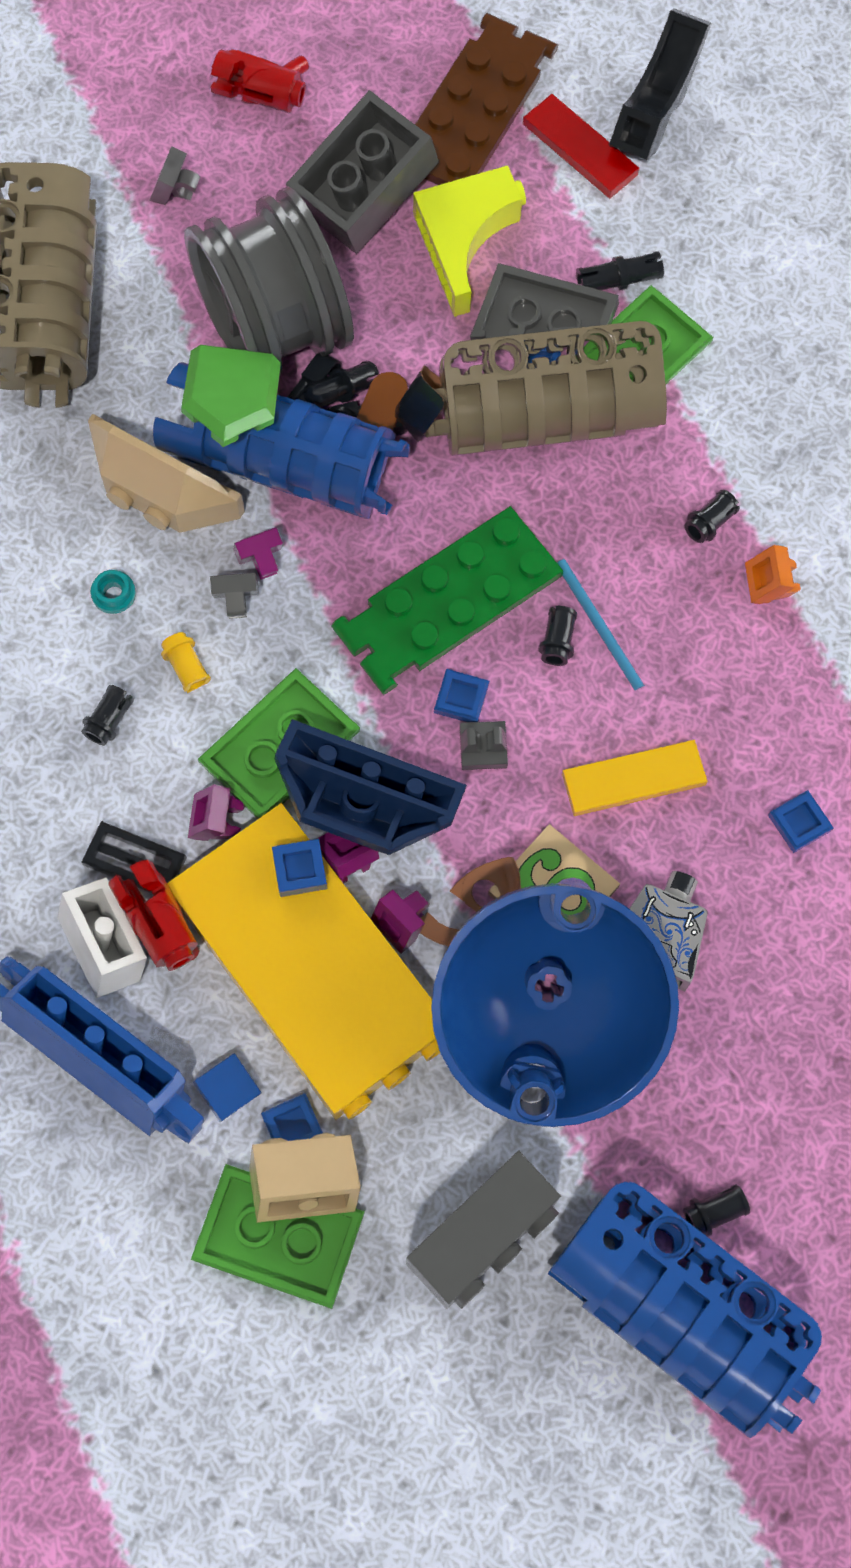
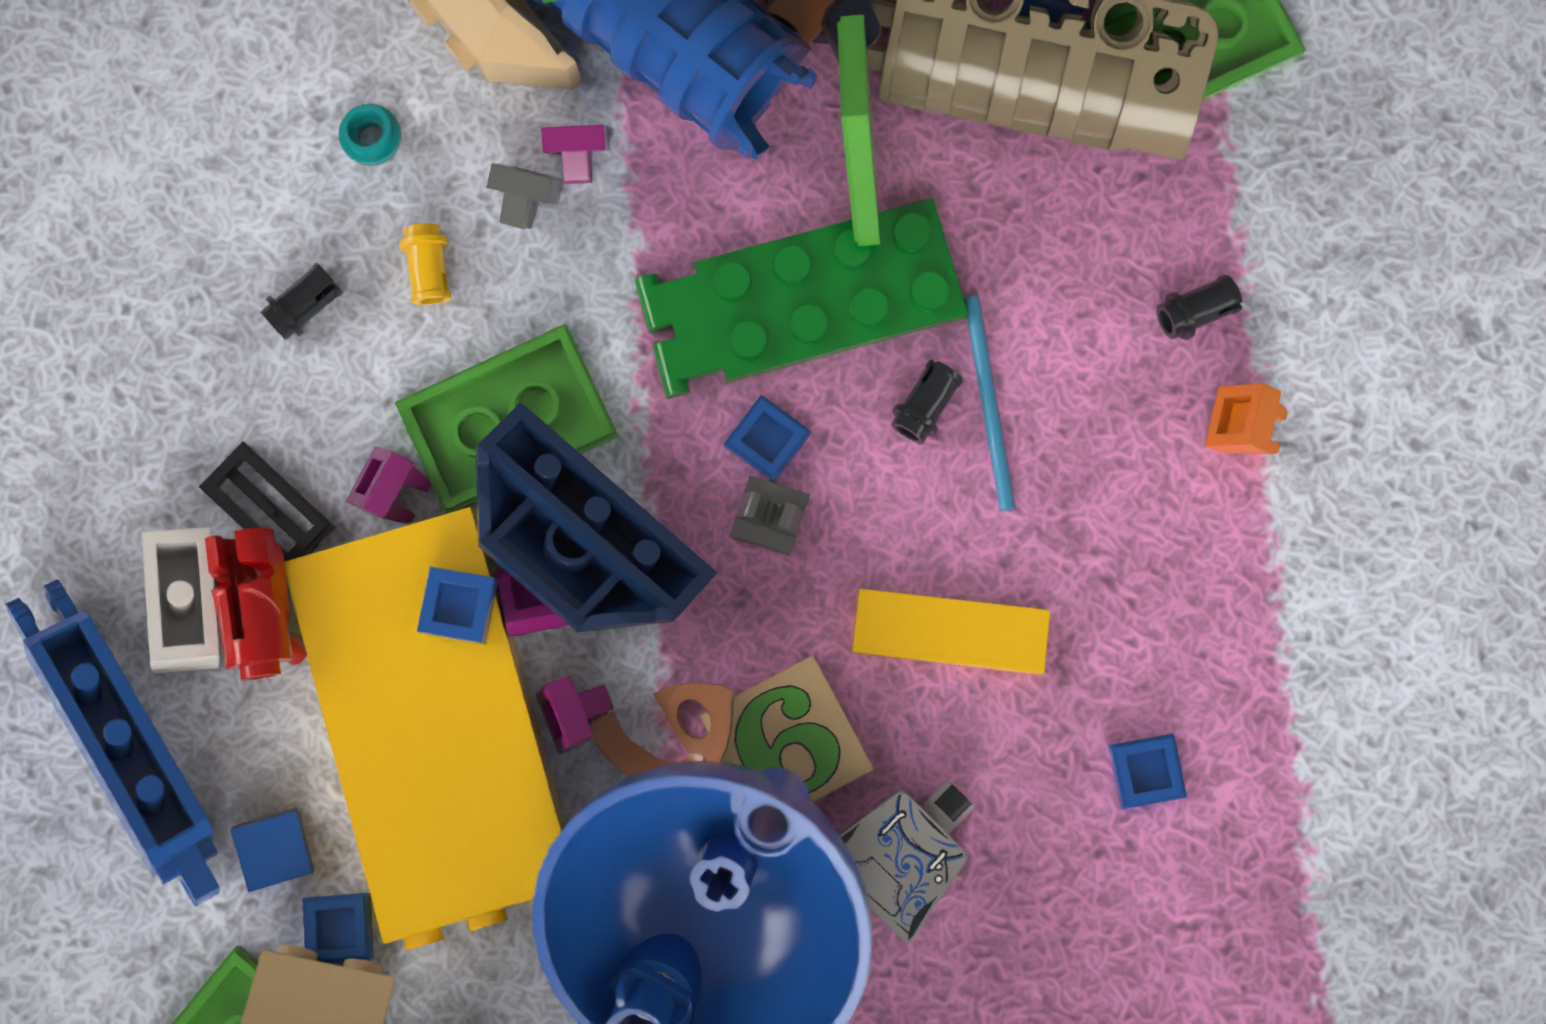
camera: 25 degrees right, 10 degrees up
(452, 470) = (858, 129): none -> bright green tile

